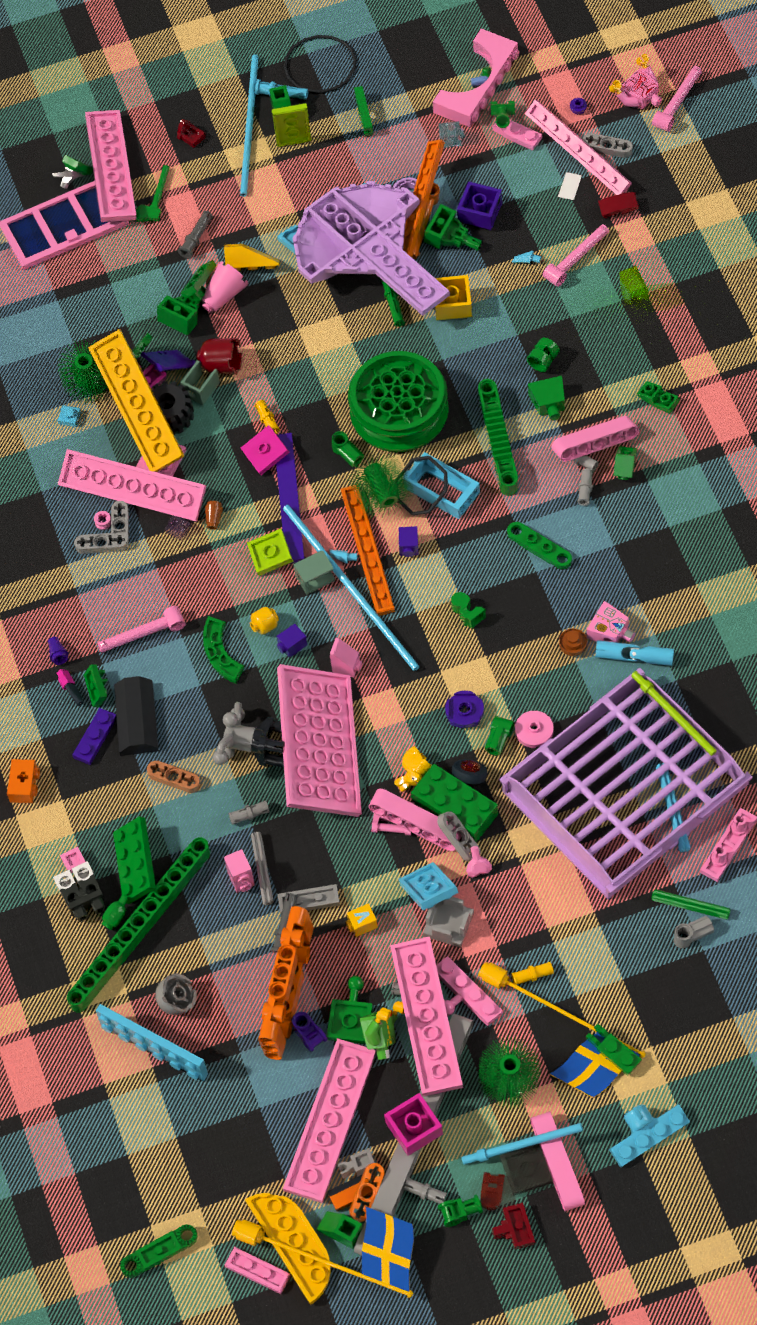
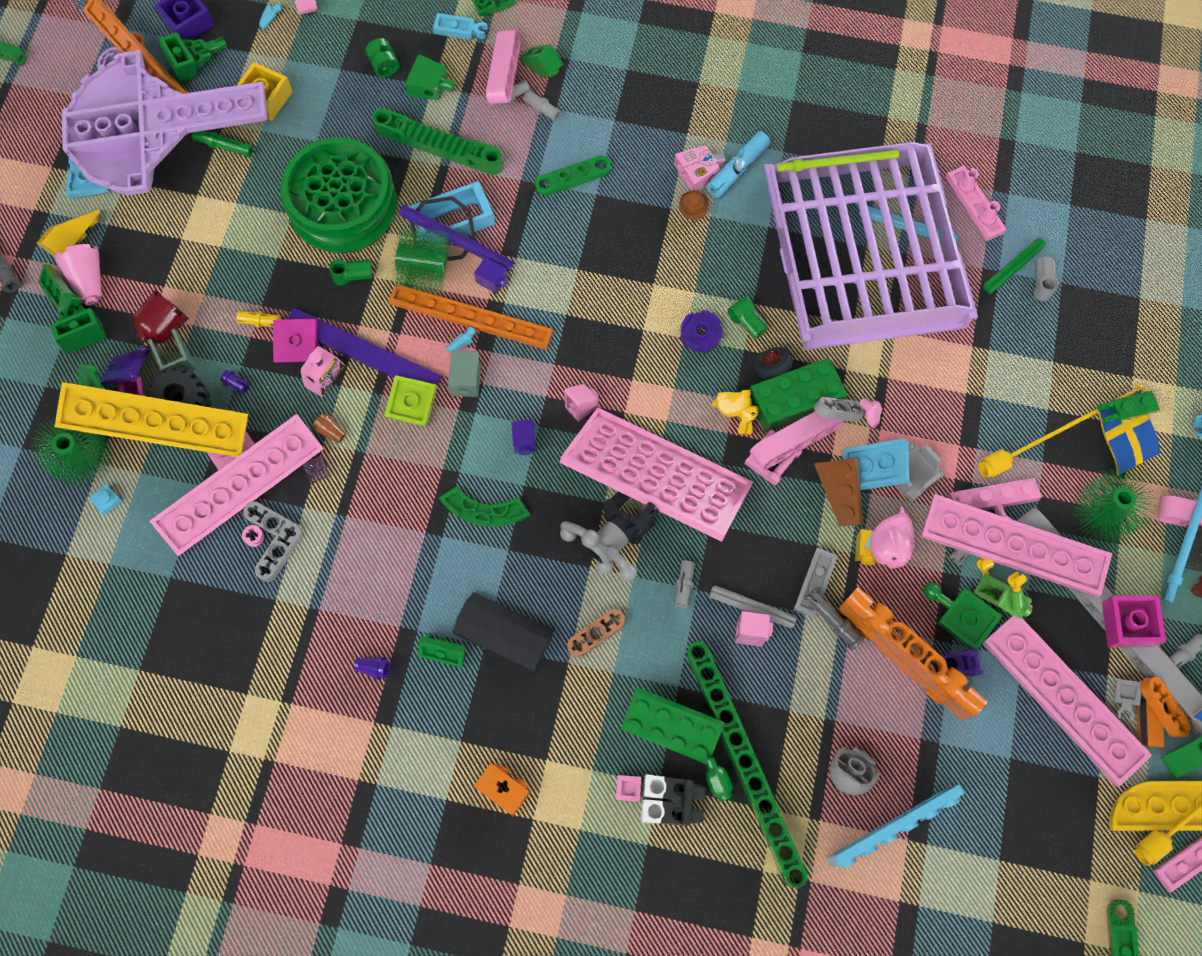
camera: 65 degrees left, 10 degrees up
(68, 684) = (415, 677): piece -> none
(94, 736) = (497, 685): dark purple plate -> none
(171, 619) = (418, 533): bright pink piece -> none
(208, 433) = (232, 380): none -> dark purple pin
(253, 480) = (320, 371): none -> bright pink torso
(264, 620) = (484, 448): yellow head -> none
(353, 590) = (506, 352): medium azure piece -> none
(374, 930) = (893, 539): none -> bright pink piece
(396, 876) = (843, 489): none -> dark orange wing
(418, 498) = (454, 237): none -> dark purple axle
(461, 605) = (591, 270): green leg -> none
(532, 973) = (1010, 430): yellow pin -> none
(533, 737) = (763, 295): bright pink plate -> none
(613, 387) = (458, 26): none -> medium azure plate

